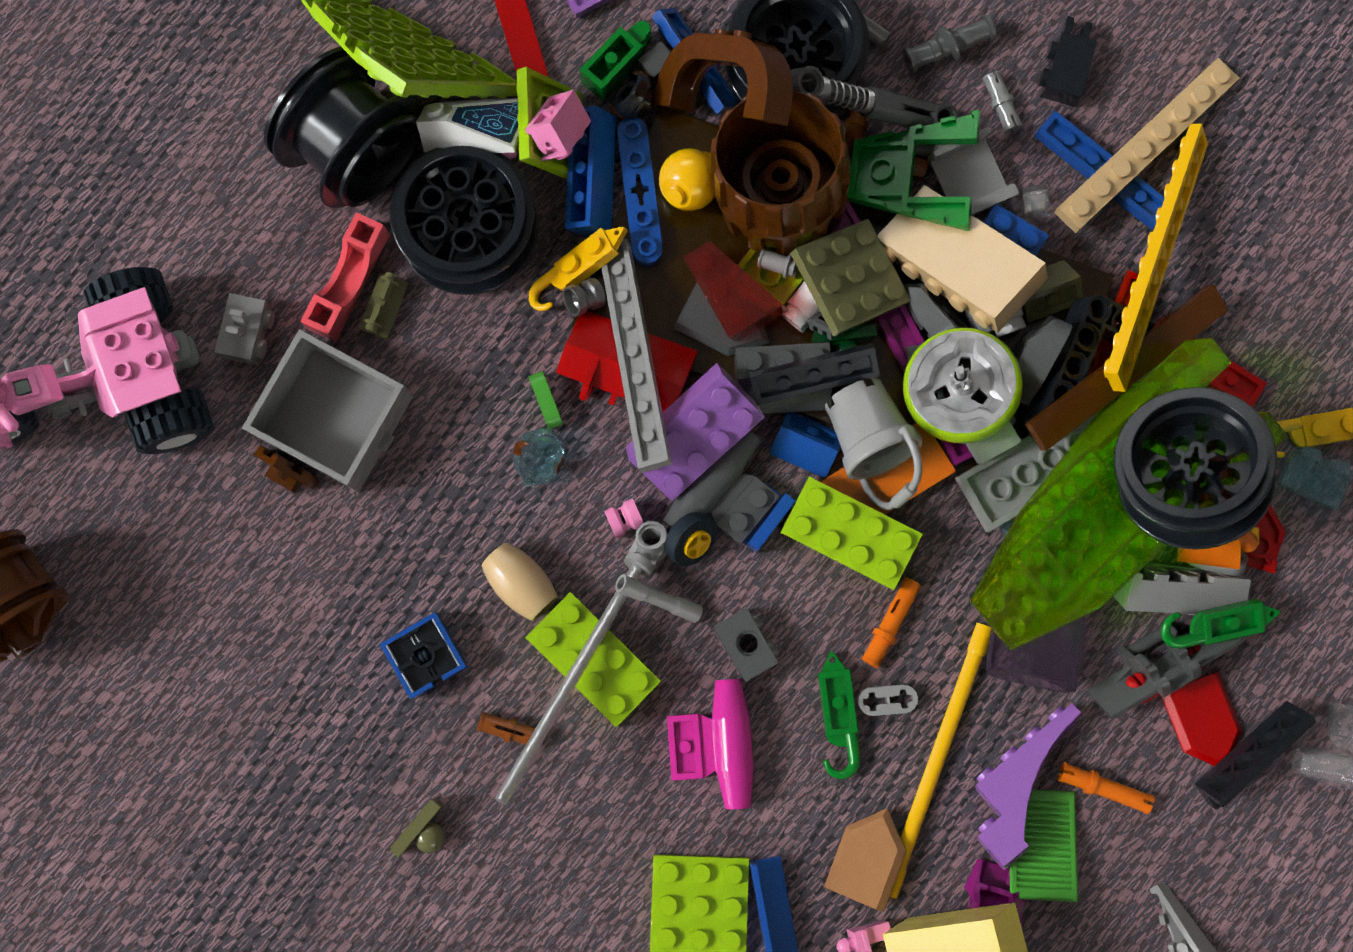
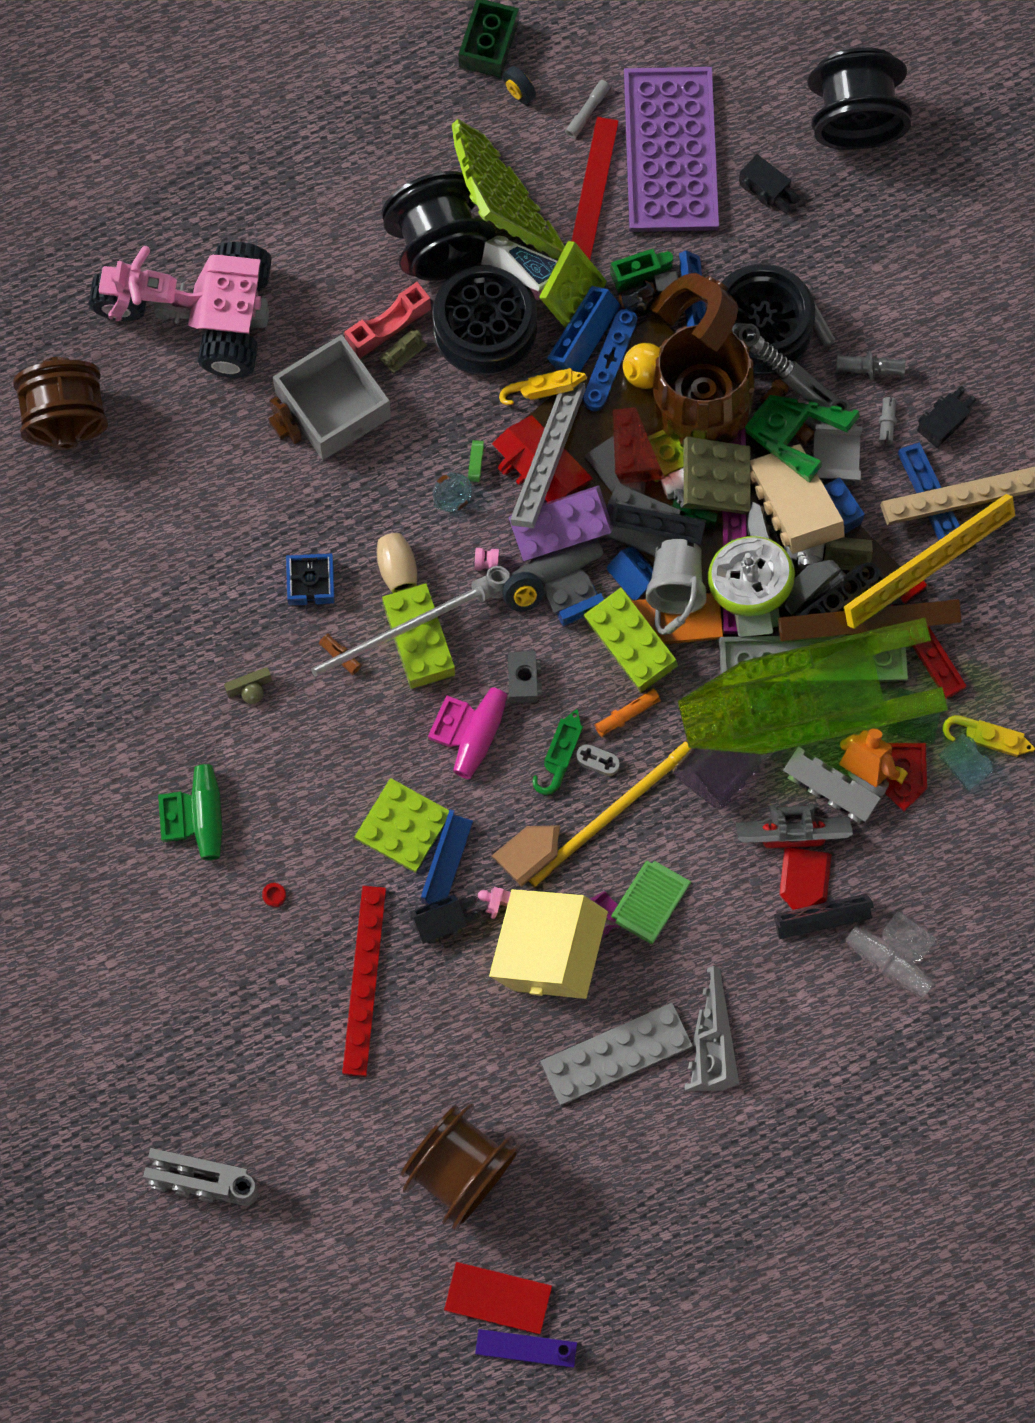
camera: 30 degrees right, 10 degrees down
(244, 329) = (304, 322): light grey brick -> none
(559, 125) = (577, 289): bright pink hinge -> none
(583, 297) = (536, 406): flat silver wheel -> none
(643, 592) = (480, 615): light grey piece -> none
(777, 263) = (673, 445): light grey pin -> none
(1010, 787) = (653, 849): medium lavender arch -> none
(1033, 204) = (868, 493): clear leg -> none
(1091, 783) = (712, 887): orange pin -> none
(1172, 423) = (868, 658): black wheel -> none
(1221, 624) = (842, 813): green plate -> none

